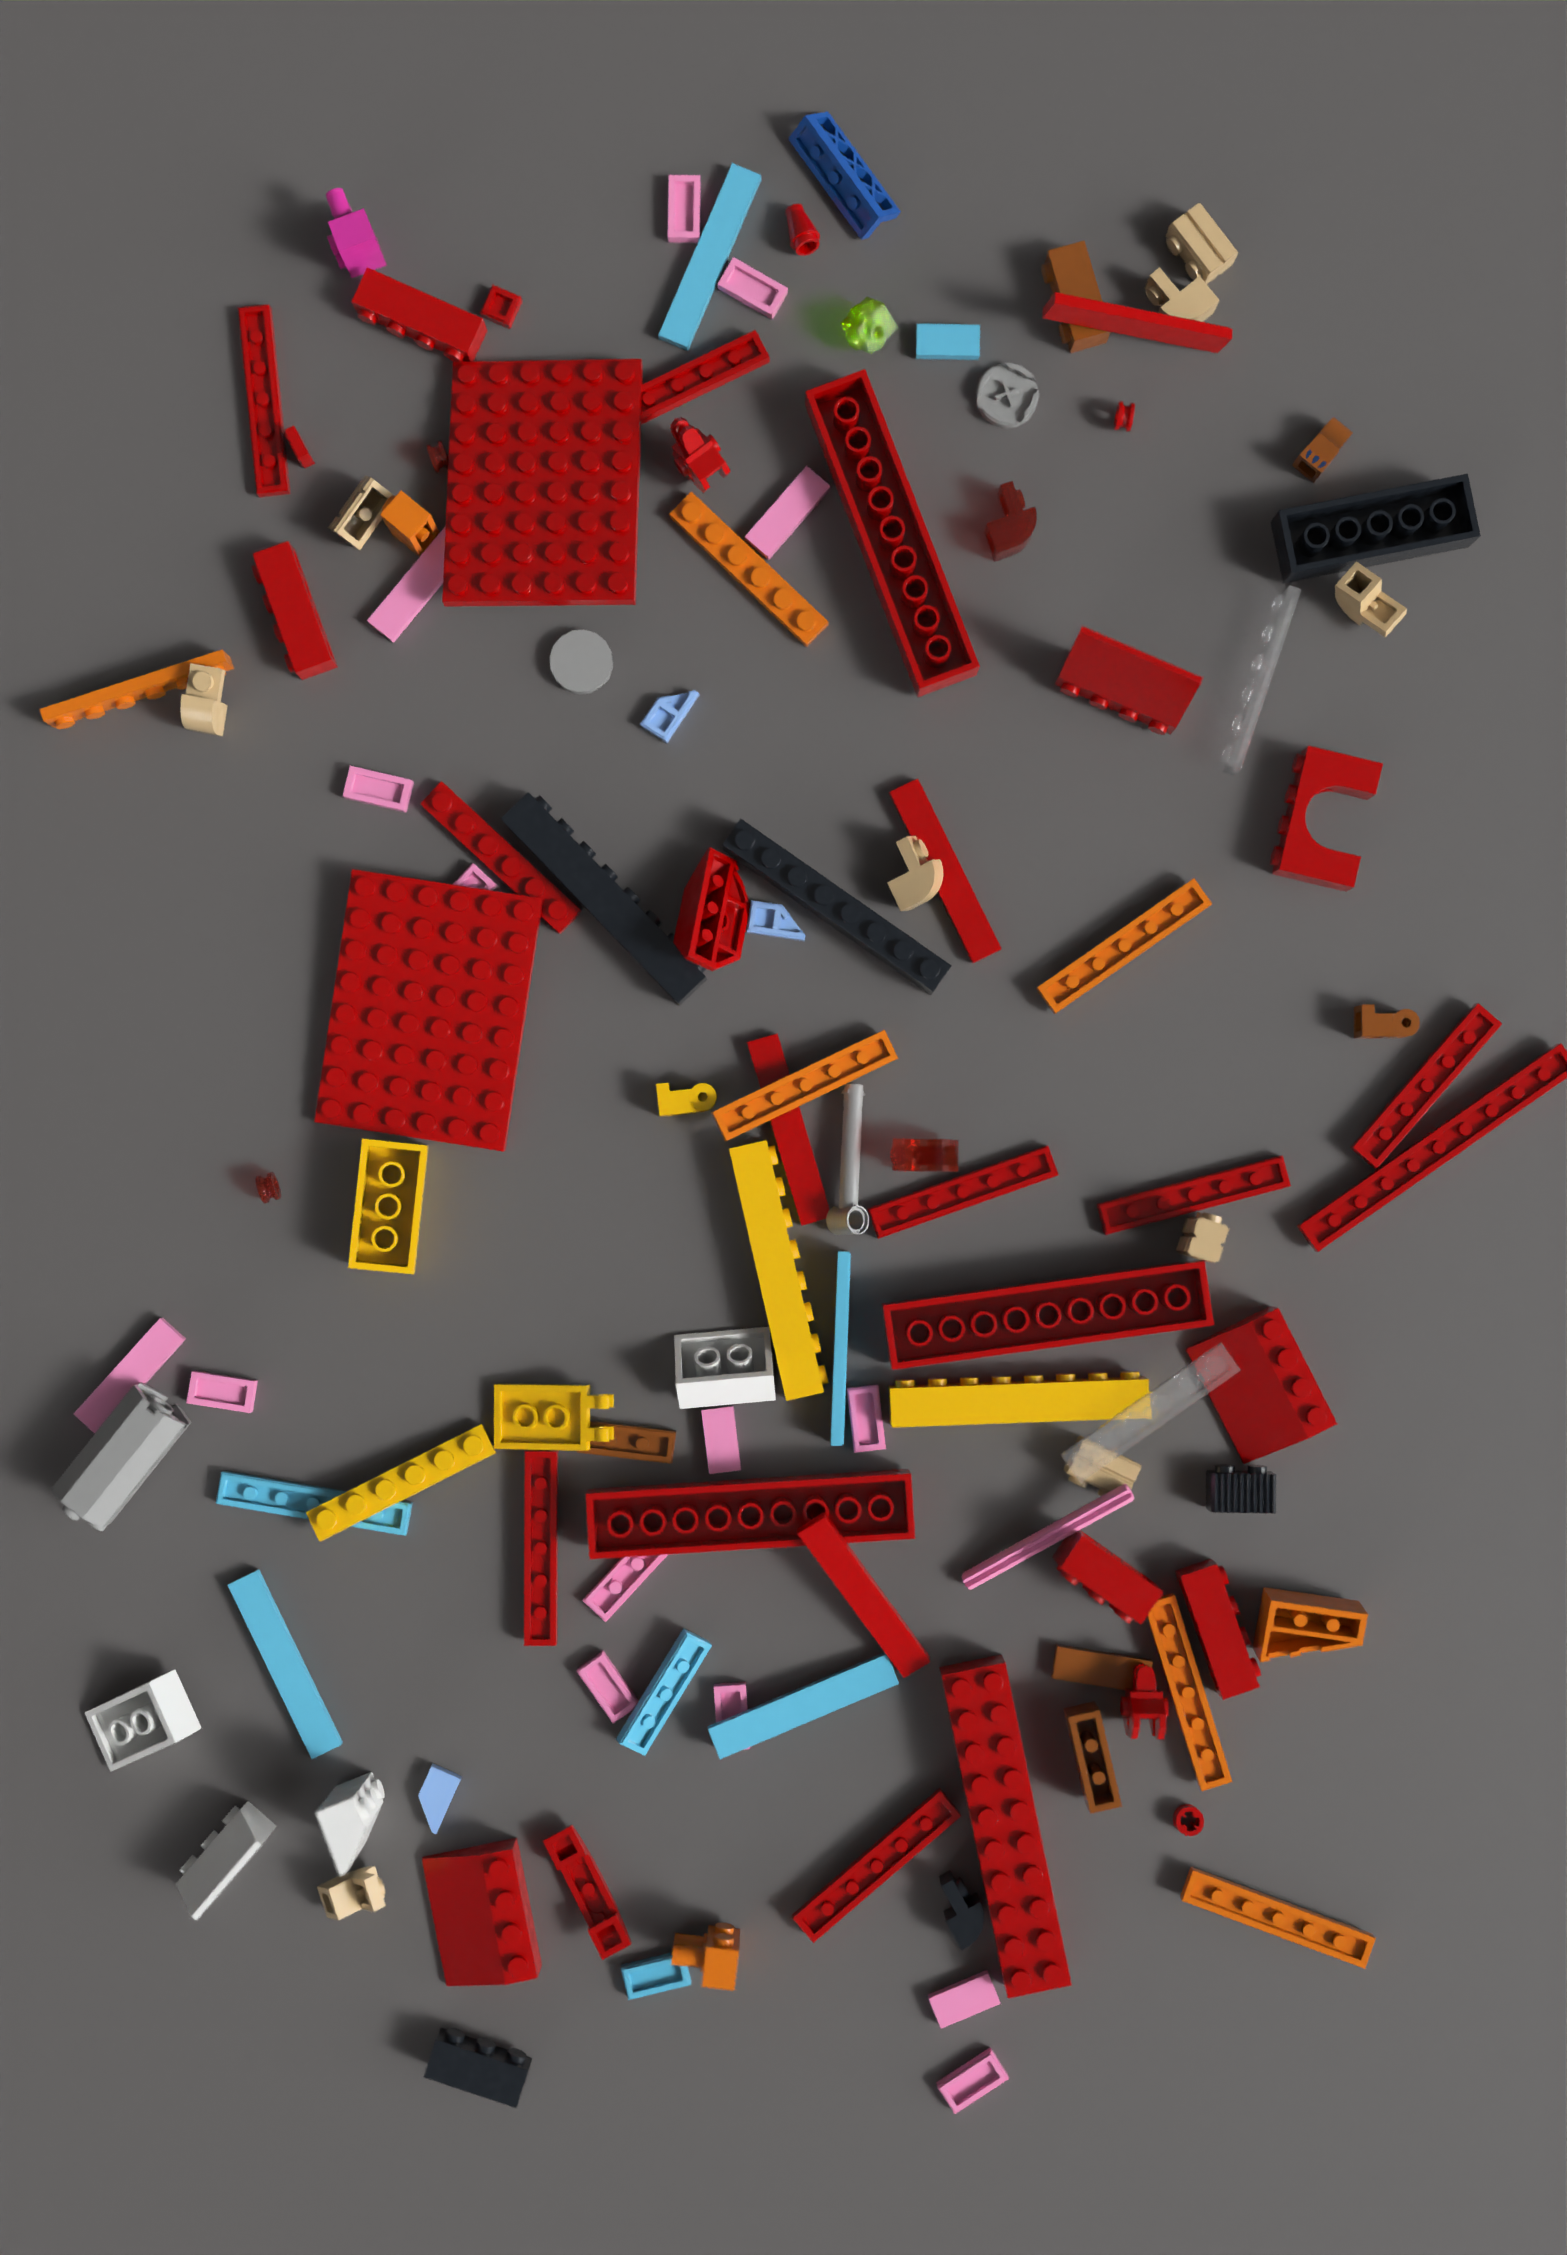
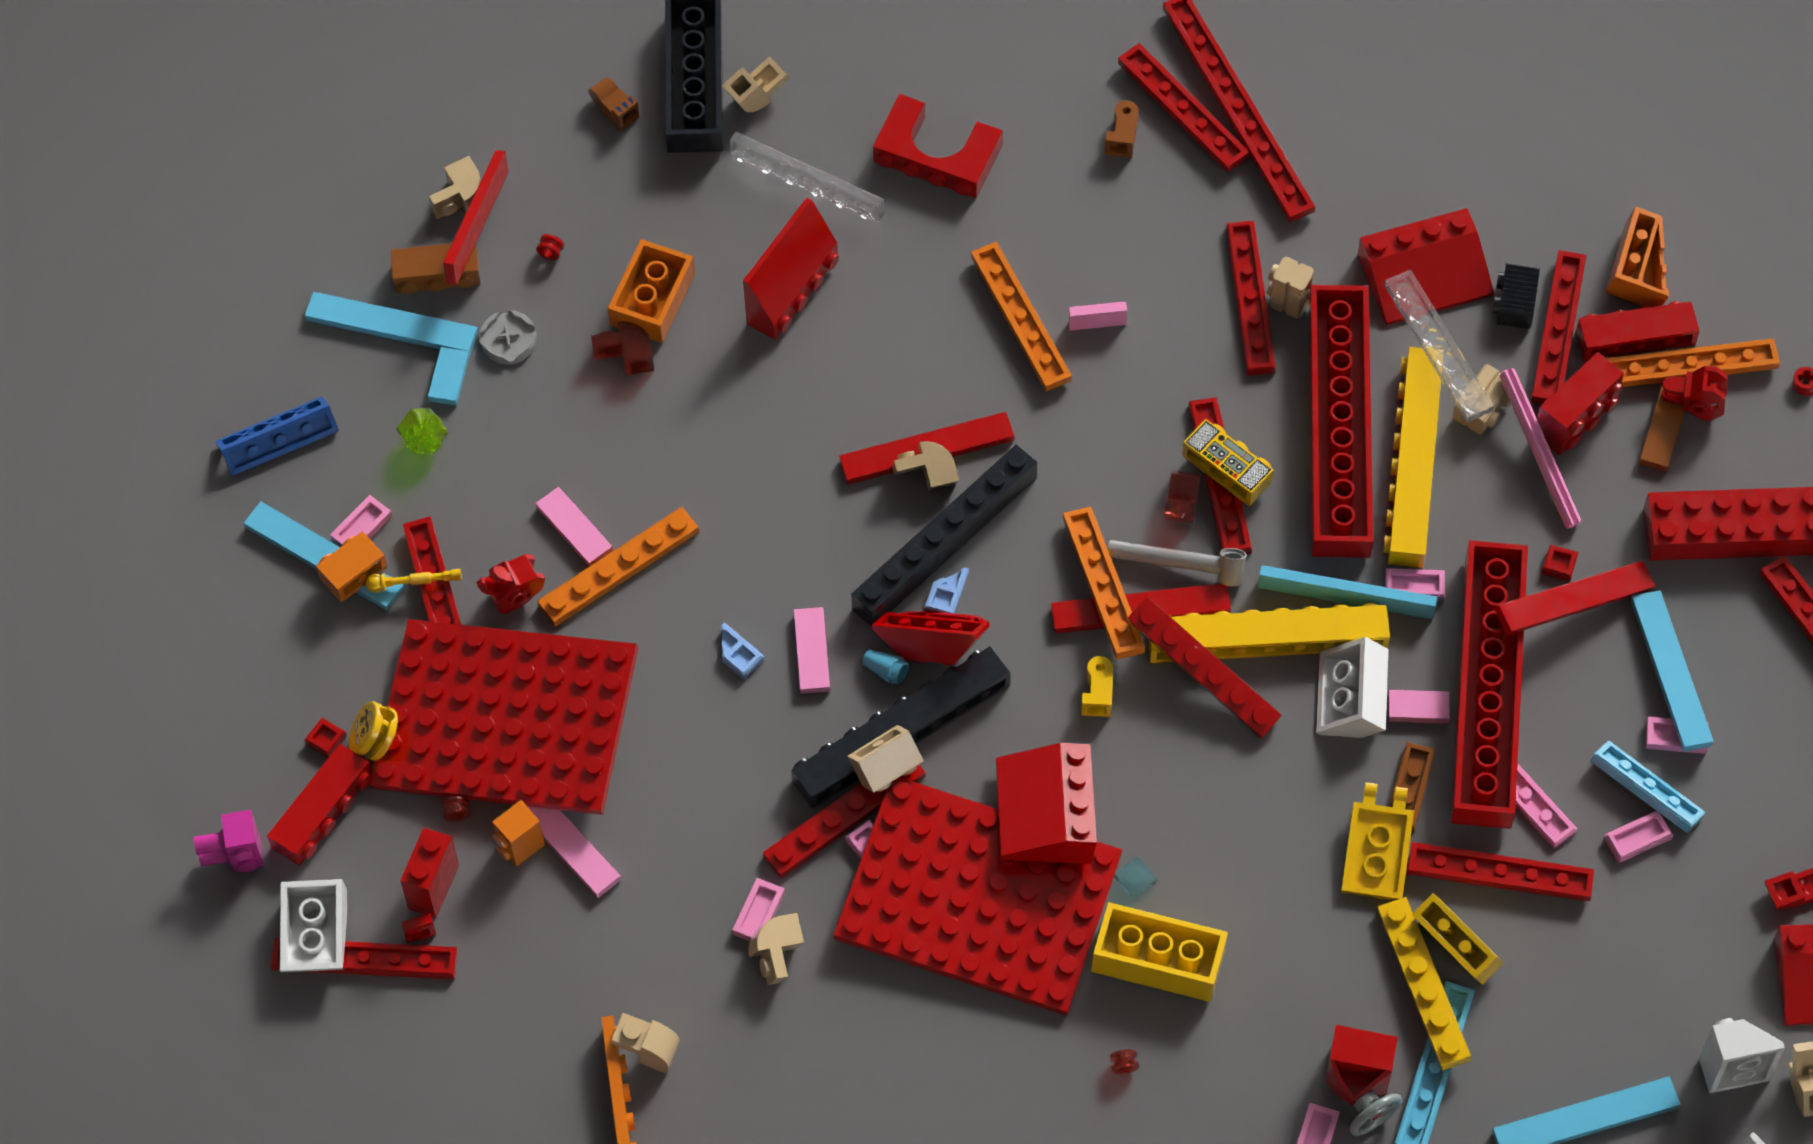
camera: 80 degrees left, 25 degrees down
(277, 337) = (313, 925): none -> white slope
(284, 1430) = (1361, 1072): none -> red piece
(294, 611) = (574, 955): red brick -> none
(339, 806) = (770, 941): none -> tan brick
(348, 441) = (429, 872): none -> red brick
(361, 513) = (496, 877): tan brick -> none
(437, 1794) = (1726, 999): light blue tile -> none
(450, 1512) = (1457, 938): none -> yellow brick
(477, 1169) = (1135, 877): none -> clear light blue plate
(503, 349) = (373, 730): none -> yellow head
(530, 1063) = (1047, 804): none -> red slope
(550, 887) = (886, 759): none -> tan brick
(581, 661) = (674, 717): light grey tile -> none
(674, 871) = (887, 666): none -> medium azure cone
(680, 321) = (377, 583): none -> yellow piece
(683, 790) = (812, 650): none -> bright pink tile
(684, 208) = (273, 570): bright pink tile -> none
(691, 284) = (350, 566): none -> orange brick
(718, 1206) = (1204, 667): none -> red plate
(802, 232) = (321, 475): red cone -> none
(891, 533) = (616, 439): red brick -> none
(918, 1571) = (1560, 563): none -> red tile
(972, 1199) = (1228, 462): none -> brick
(1002, 266) = (390, 323): none -> medium azure tile
(1083, 536) = (652, 289): none -> orange brick
(1092, 1757) = (1740, 441): dark orange brick -> none
(1137, 1030) = (1097, 316): none -> bright pink tile
(1200, 244) = (413, 166): tan brick -> none
(1208, 1540) = (1559, 325): none -> red plate

